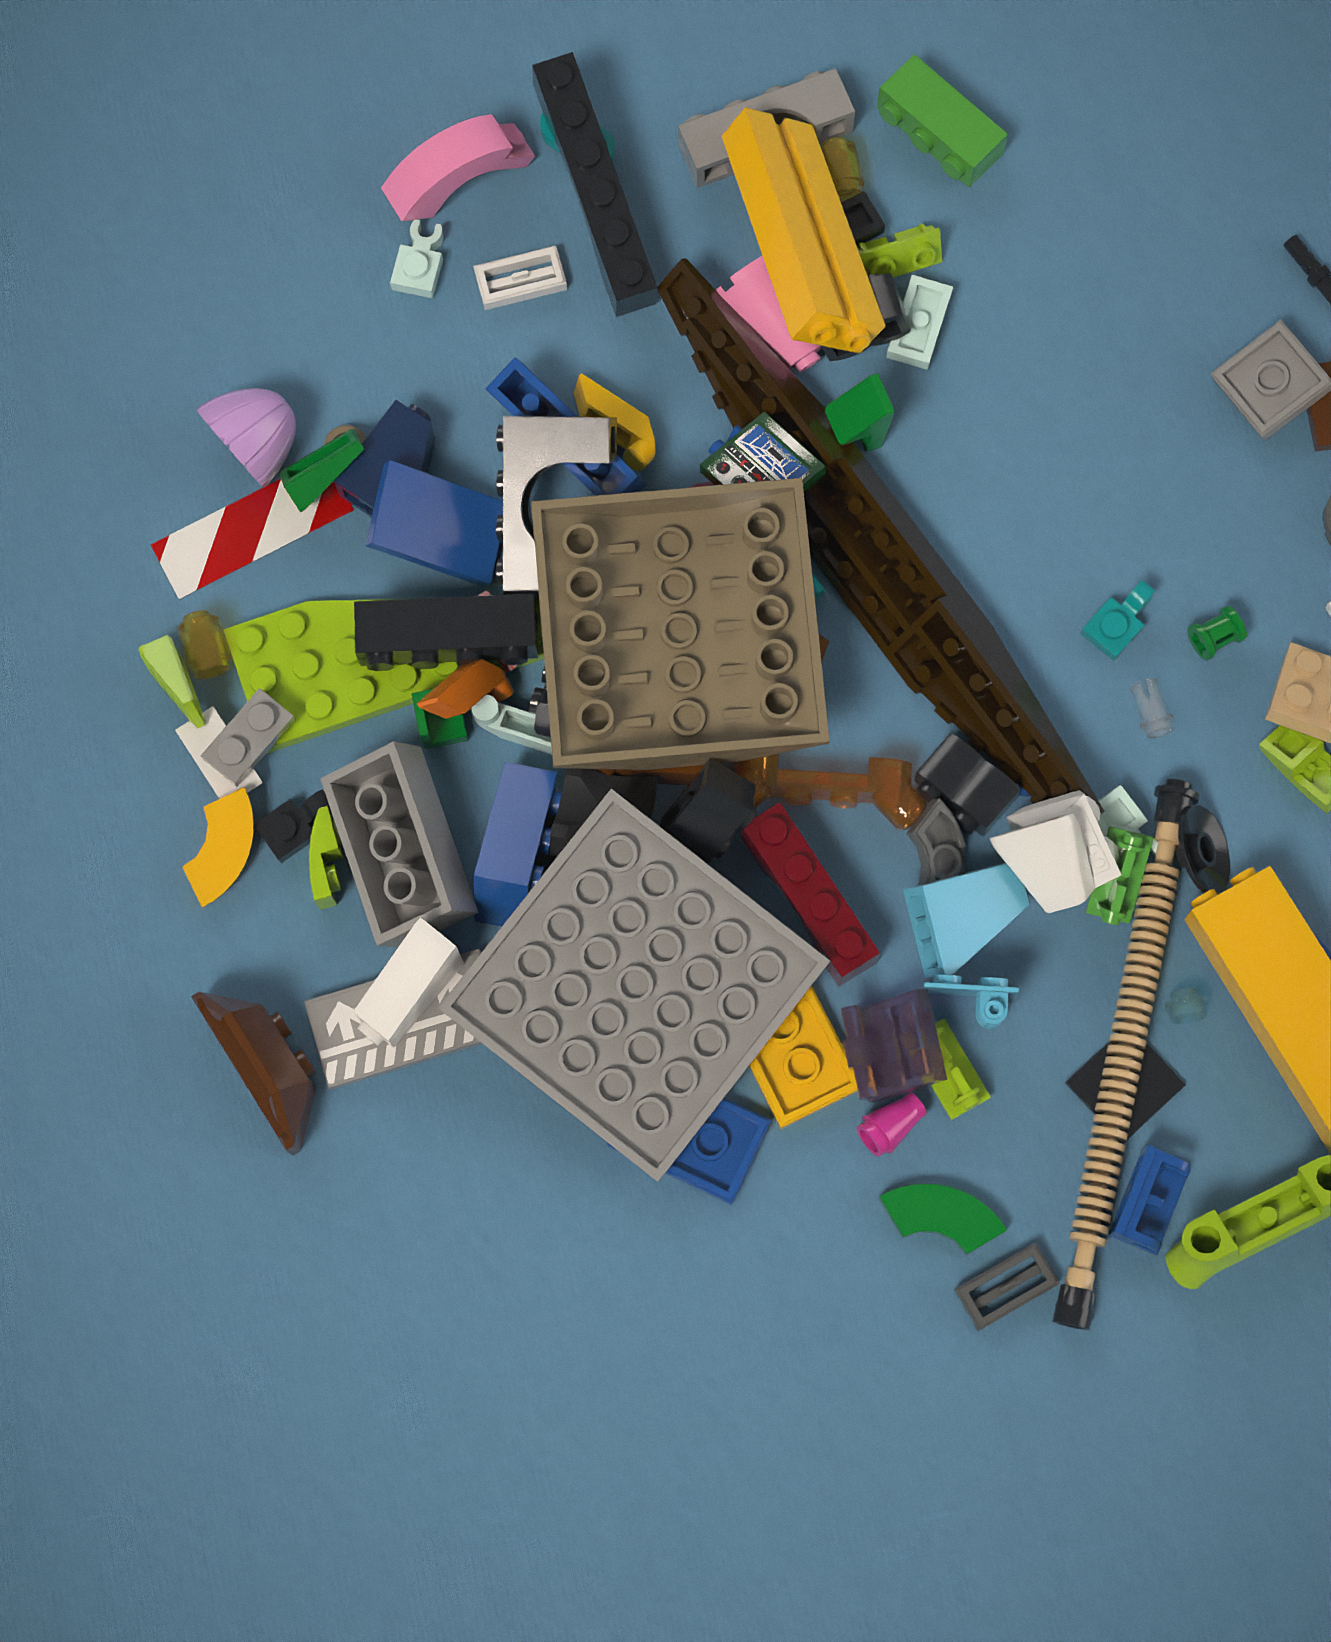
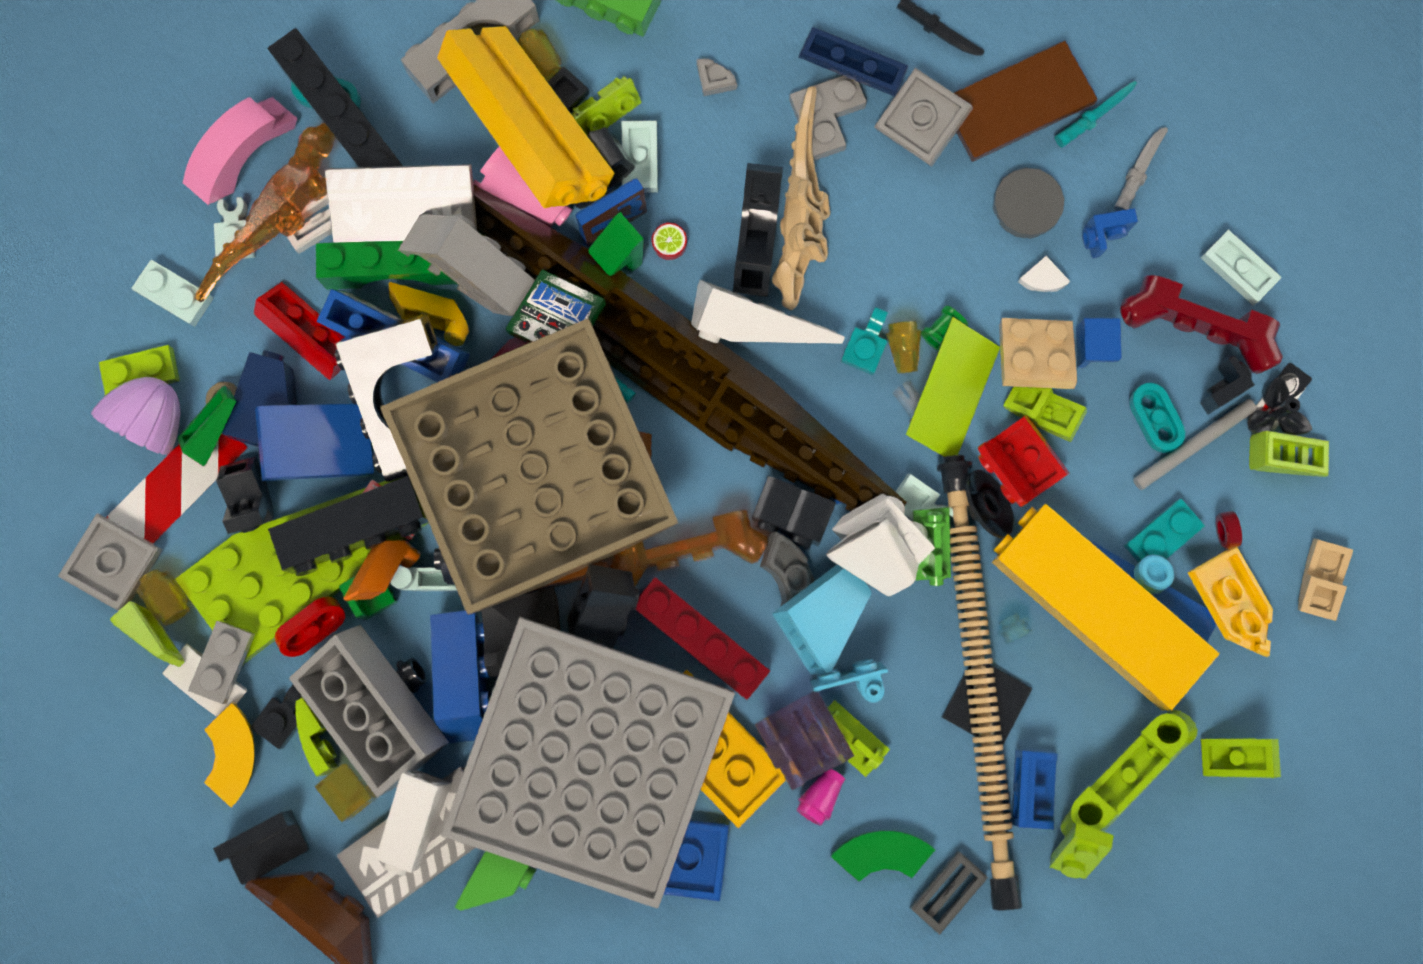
camera: 20 degrees left, 5 degrees up
(156, 586) = (109, 562): none -> light grey plate
(224, 963) = (264, 847): none -> black panel
(280, 378) = (153, 363): none -> lime plate
(326, 308) = (171, 293): none -> light aqua plate
(335, 560) = (245, 496): none -> black brick
(340, 932) = (345, 793): none -> clear yellow panel
(359, 732) = (309, 627): none -> red plate
(459, 824) = (411, 674): none -> black plate
(460, 396) = (297, 326): none -> red slope
(480, 1086) = (493, 880): none -> bright green slope
(483, 246) = (279, 204): none -> clear orange animal
(627, 286) = (388, 199): none -> tile
(632, 361) = (358, 263): none -> green arch
(686, 373) = (469, 260): none -> light grey wedge
(845, 371) = (627, 199): none -> blue tile
(922, 430) = (669, 241): none -> tile
(974, 539) = (737, 319): none -> white wedge
(1031, 446) = (757, 229): none -> black arch
(1038, 259) = (714, 77): none -> light grey tile
(1092, 445) = (803, 211): none -> tan animal
(1151, 332) = (832, 101): none -> light grey plate
(1163, 637) = (904, 345): none -> clear yellow cone
(1180, 1284) = (1081, 851): none -> lime plate
(1204, 705) = (953, 390): none -> lime sticker
(1210, 291) = (853, 61): none -> dark blue slope
(1259, 814) = (1022, 462): none -> red bracket

